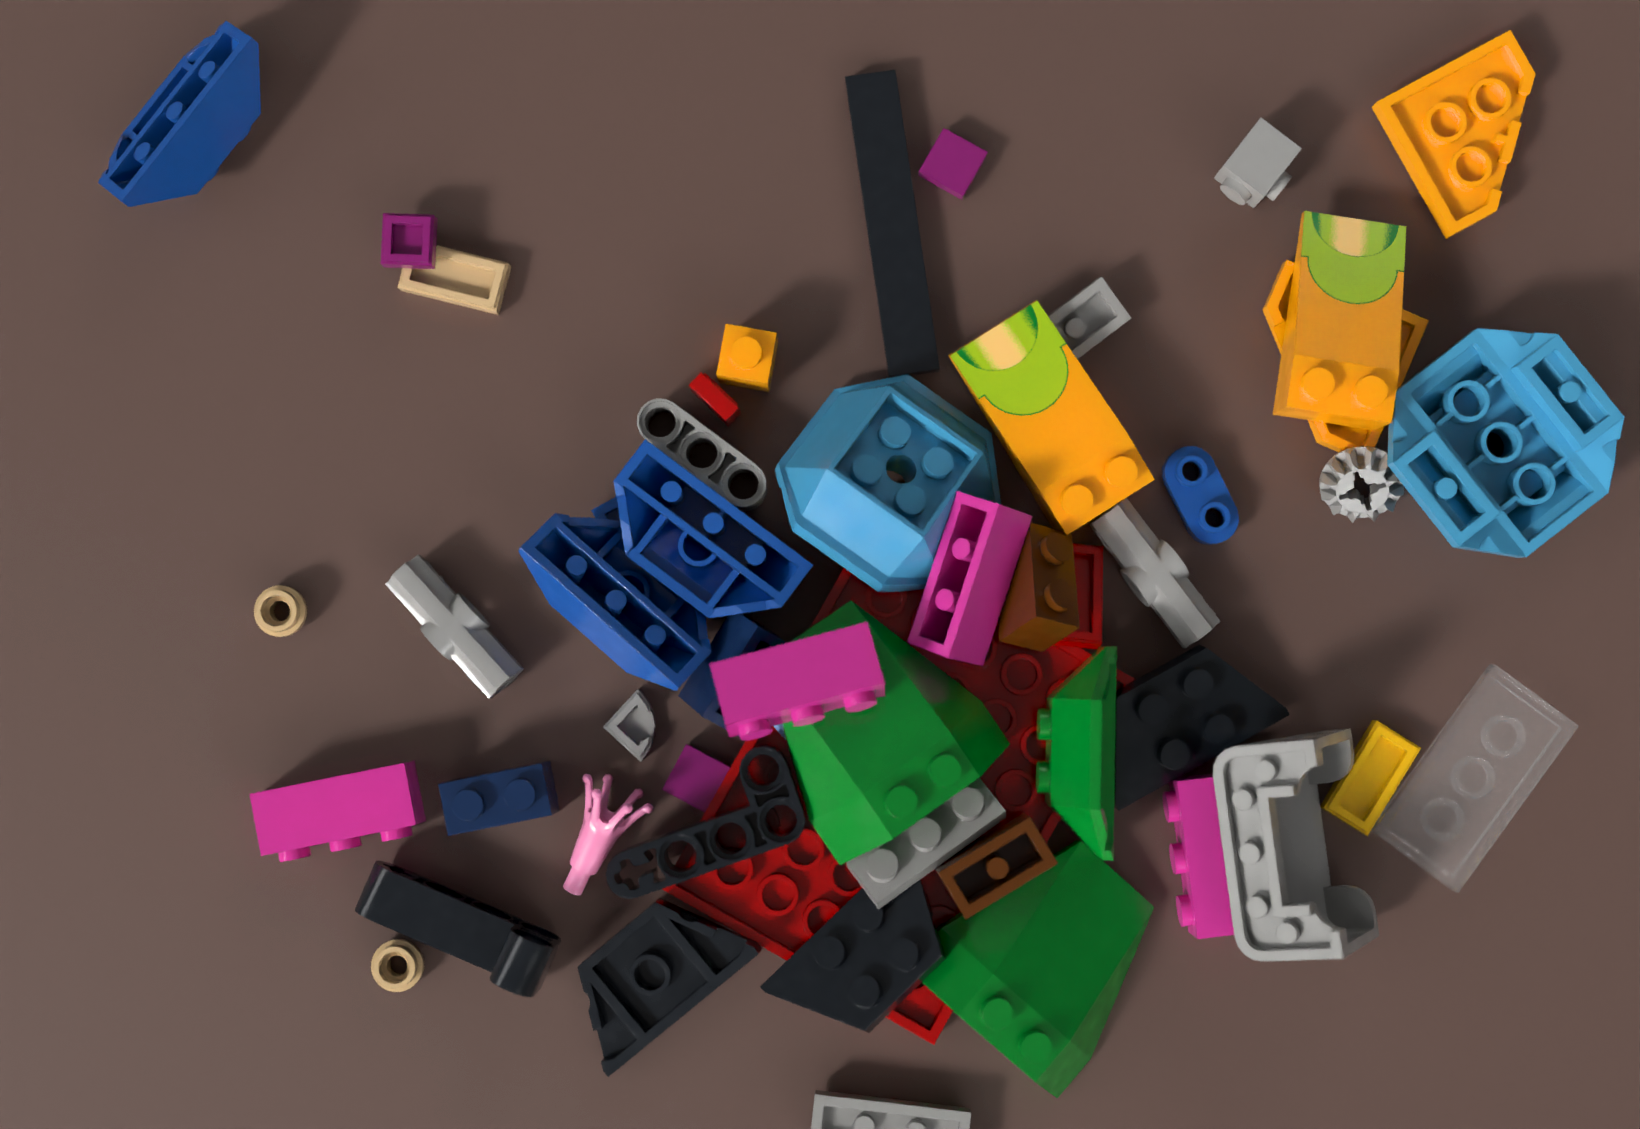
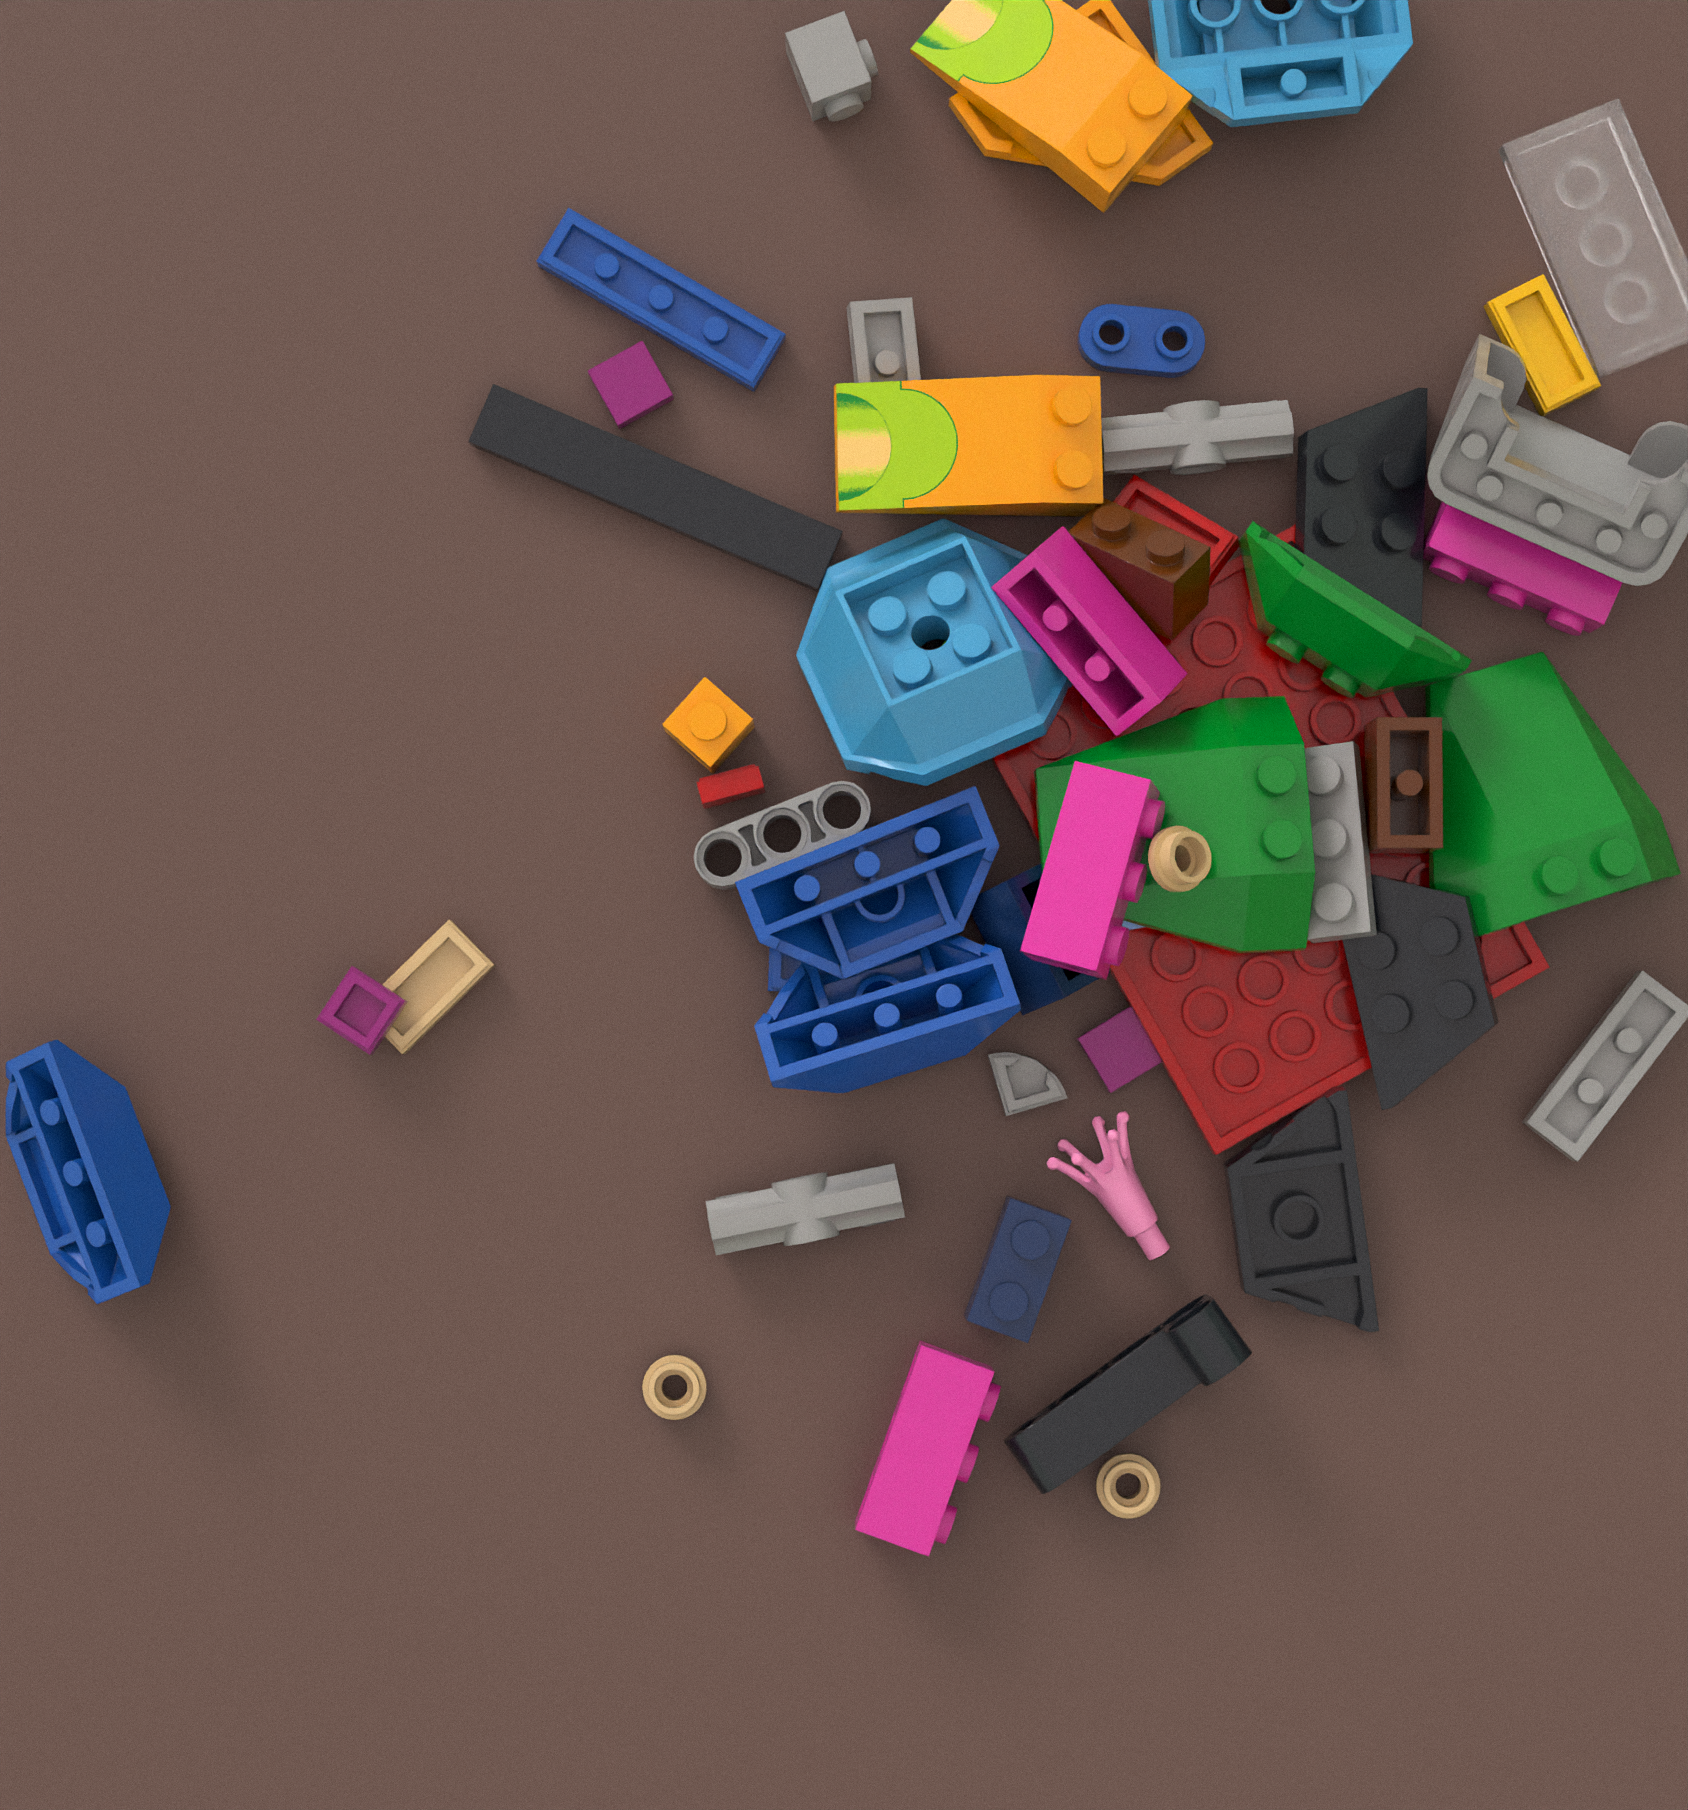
camera: 65 degrees left, 0 degrees up
(704, 838) = (1186, 1069): black beam -> none
(851, 744) = (1191, 861): none -> tan plate
(1024, 149) = (661, 299): none -> blue tile
(1338, 479) = (1218, 190): light grey gear -> none

